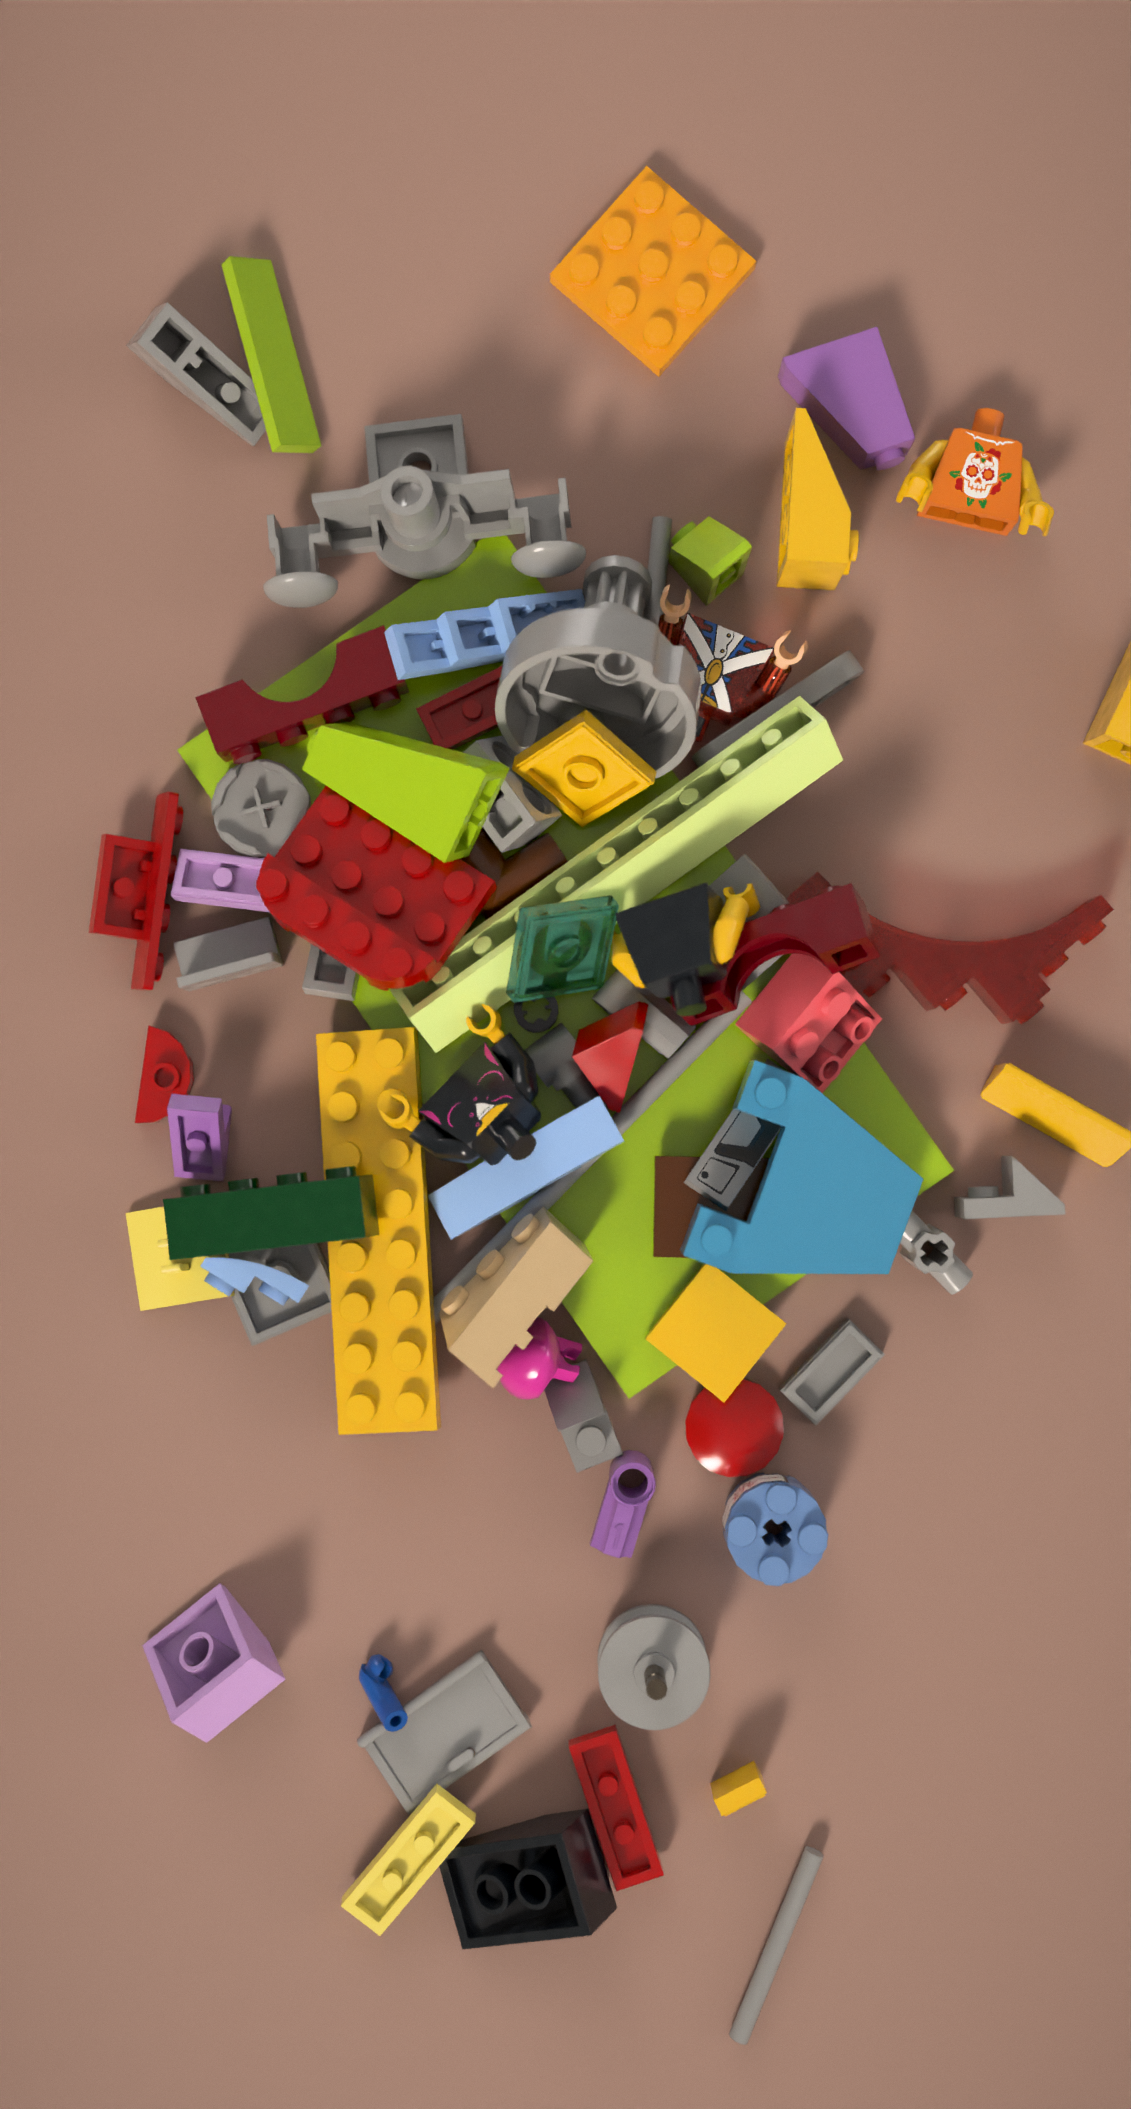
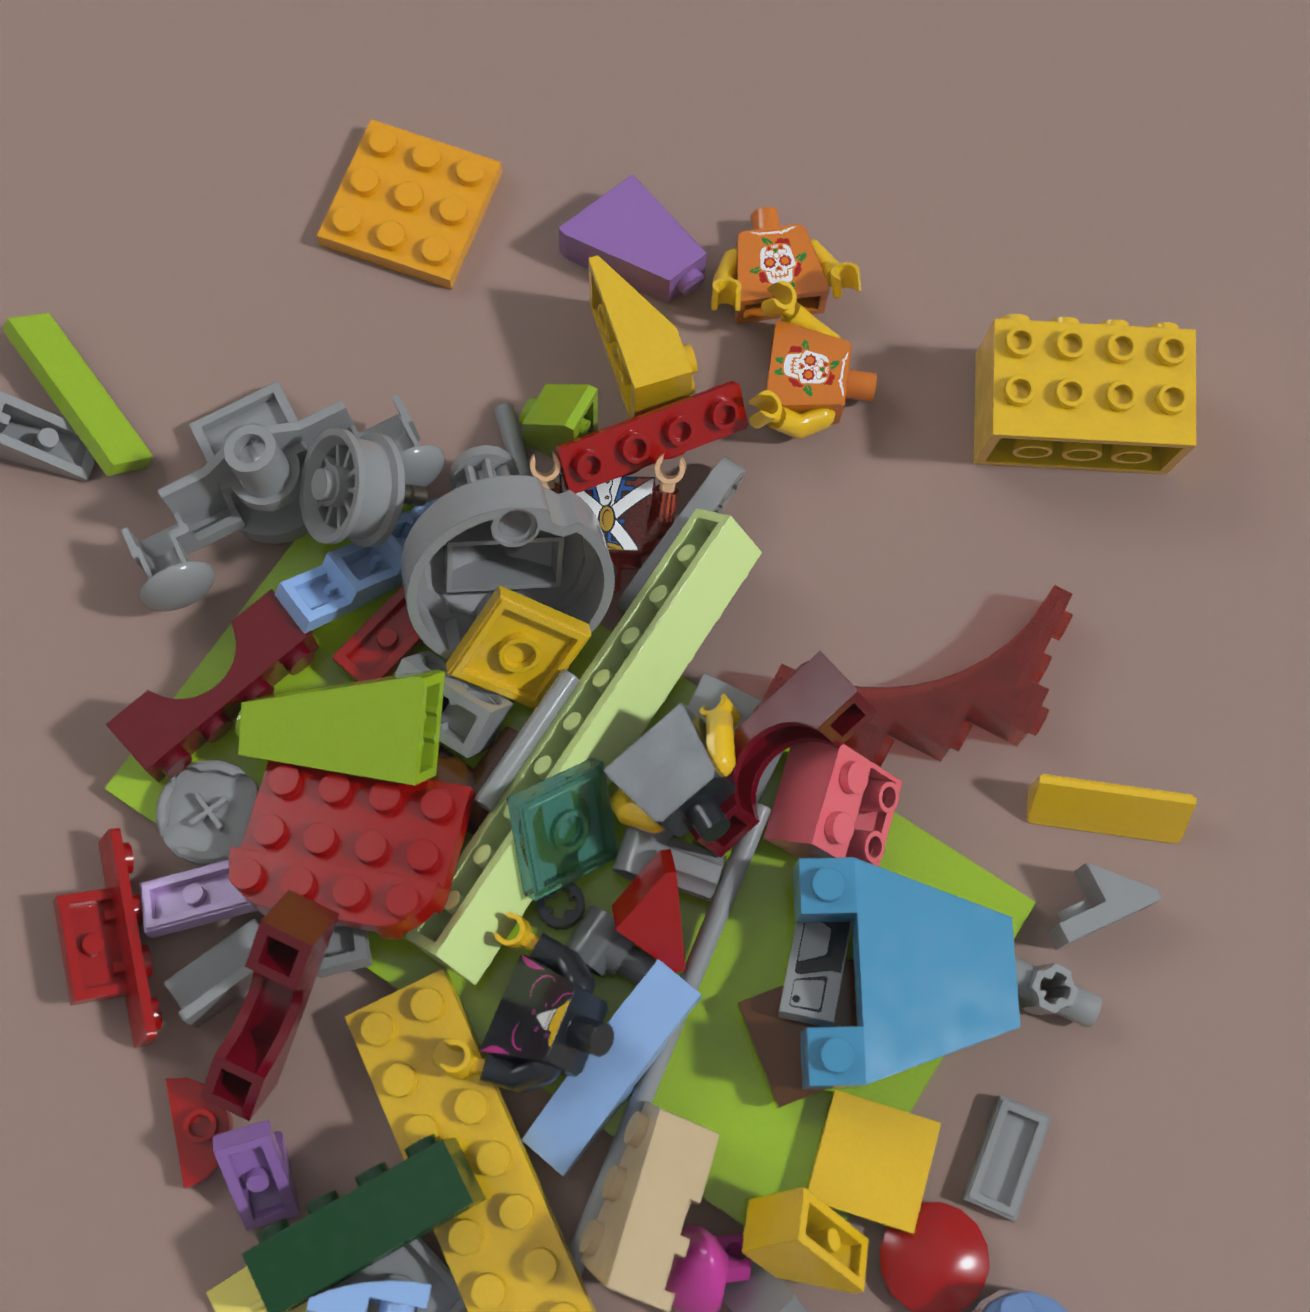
camera: 30 degrees left, 15 degrees down
(274, 984) = (284, 969): none -> dark red arch
(490, 561) = (354, 488): none -> light grey wheel
(560, 855) = (526, 740): none -> light grey bar
(630, 1373) = (805, 1241): none -> yellow slope
(785, 607) = (644, 438): none -> red bracket
(961, 595) = (806, 371): none -> torso

